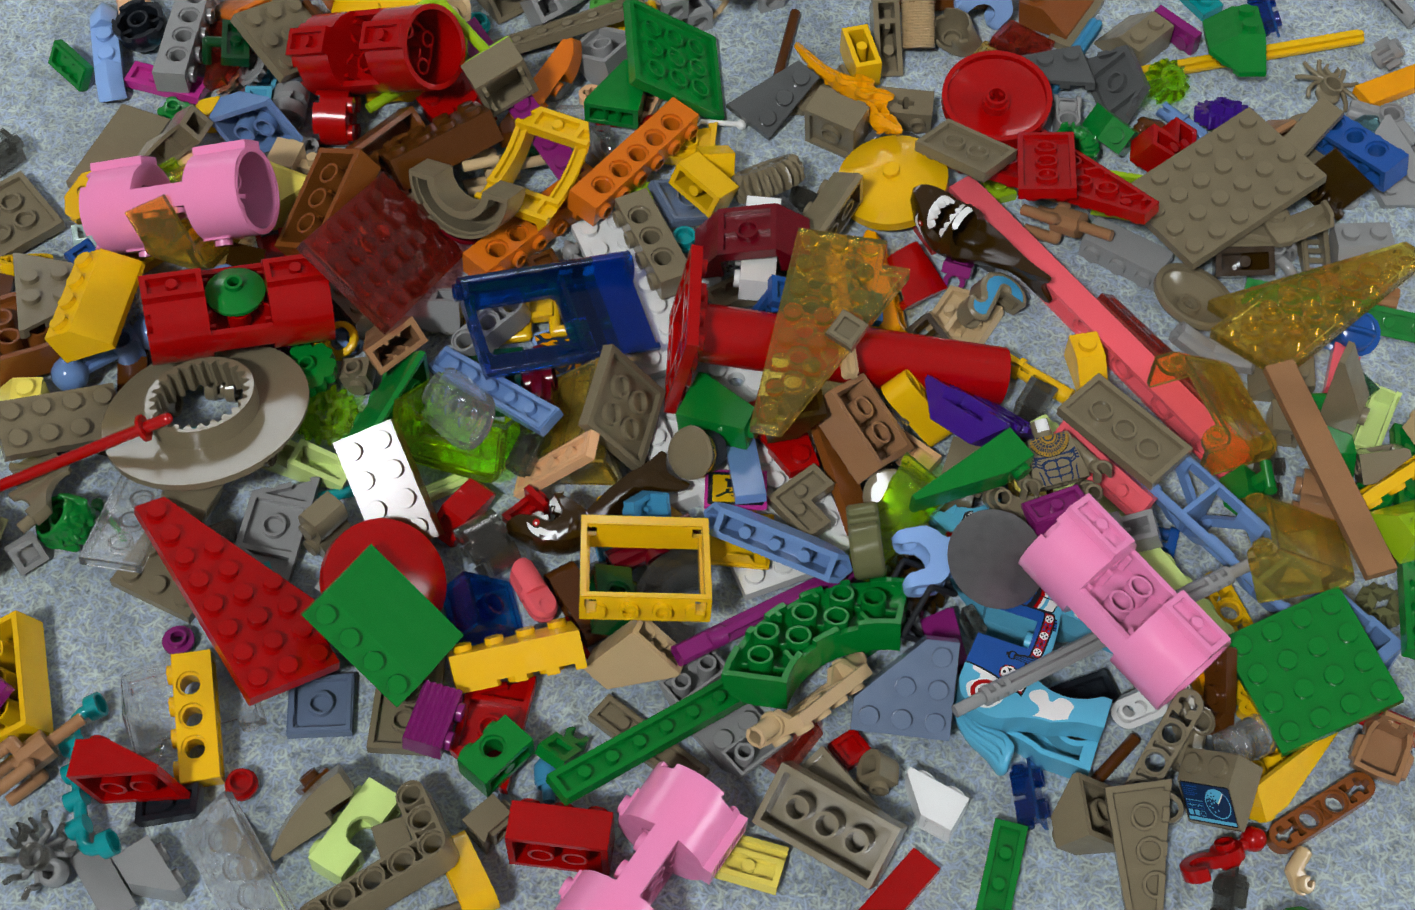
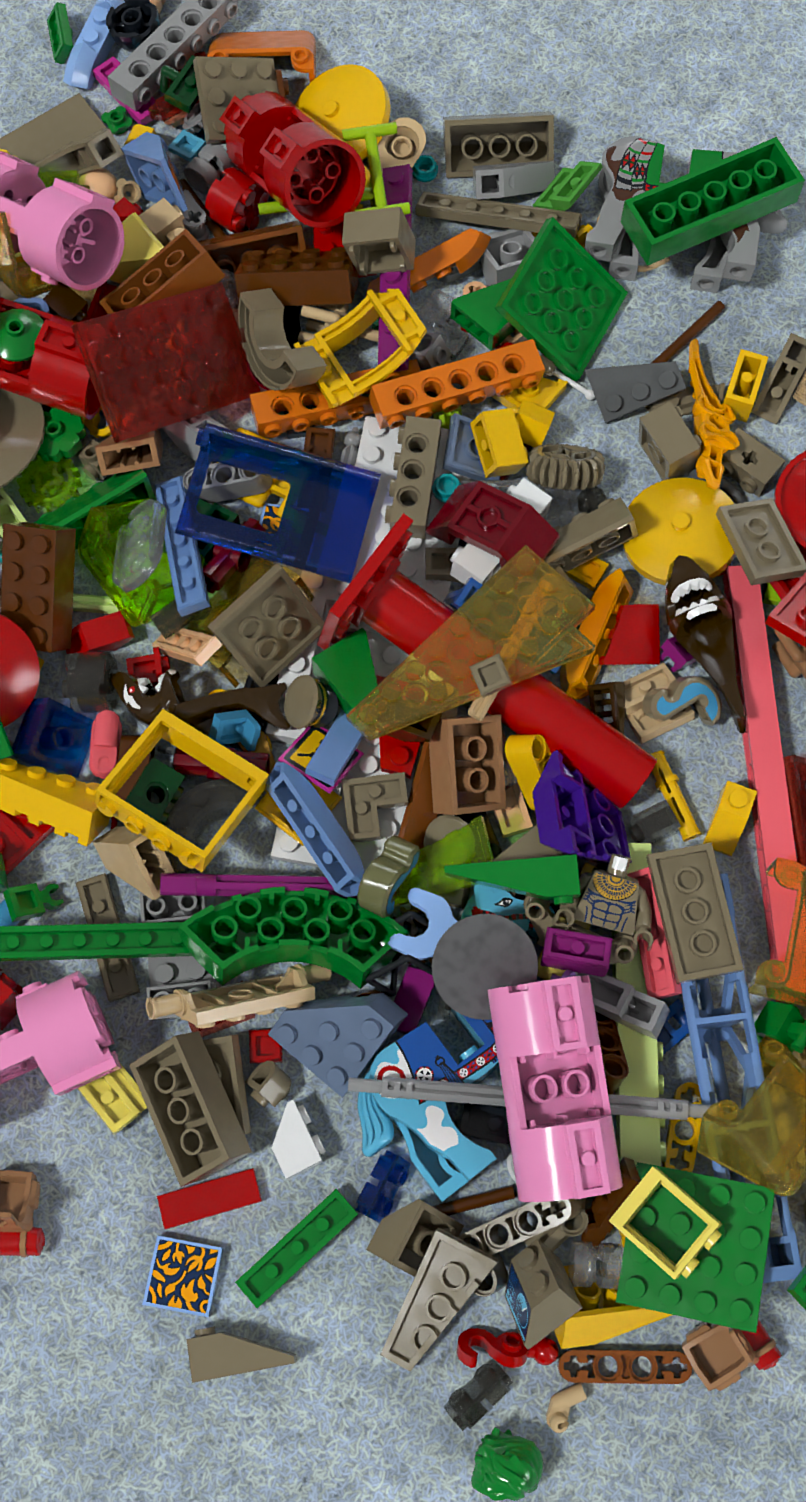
camera: 35 degrees right, 15 degrees up
(1280, 631) = (639, 1197): none -> light yellow window

